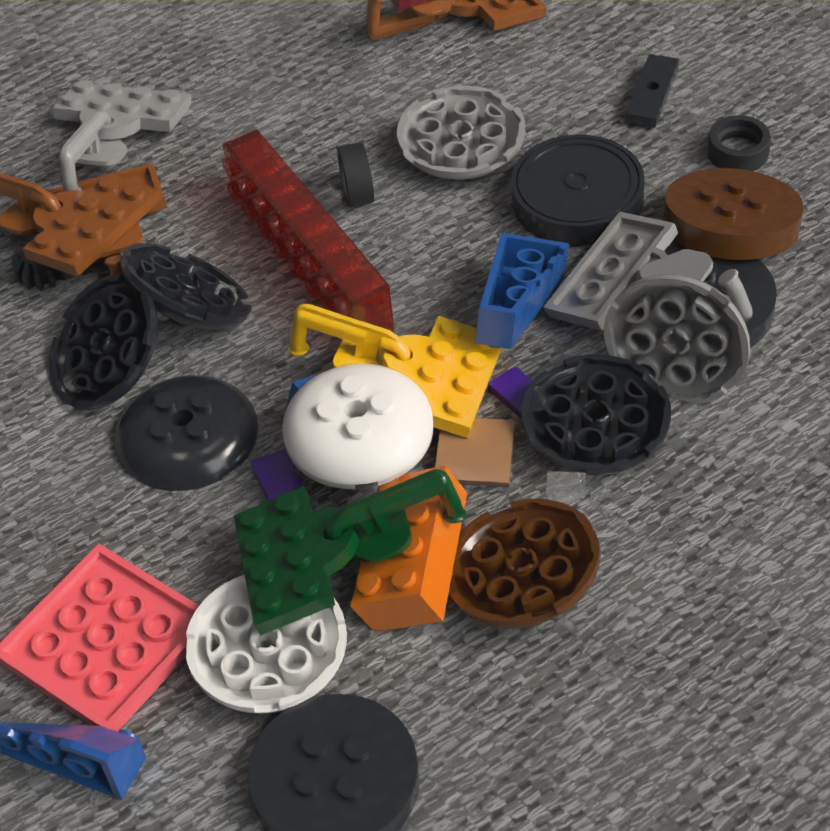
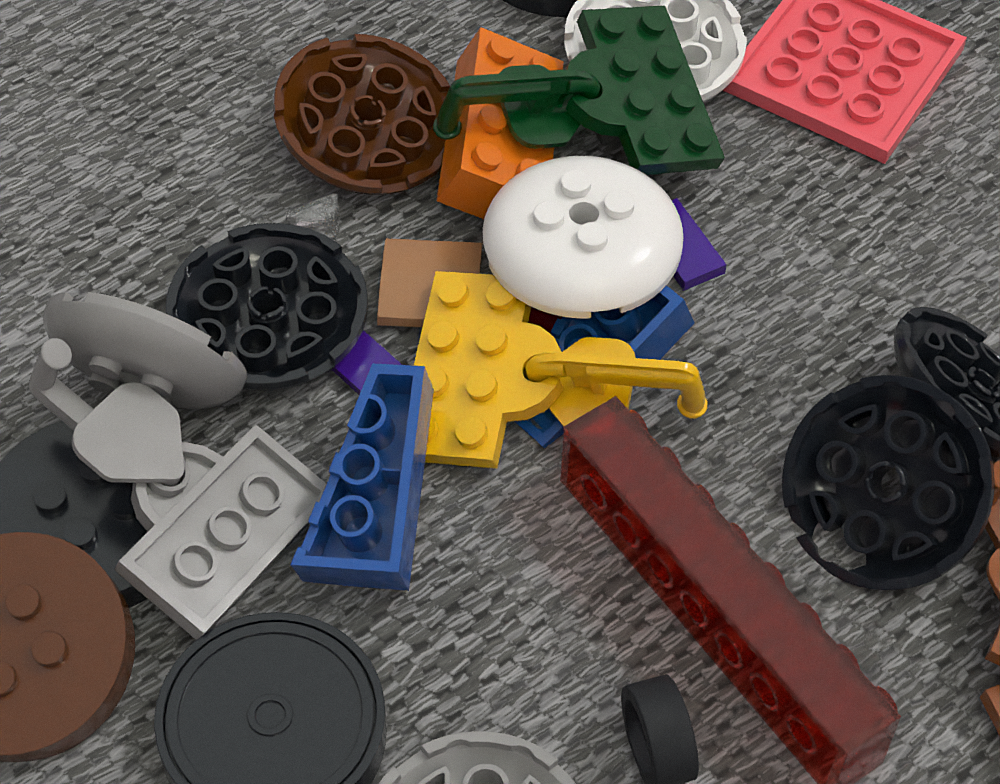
camera: 170 degrees right, 5 degrees up
(181, 457) = (797, 342): black brick -> none

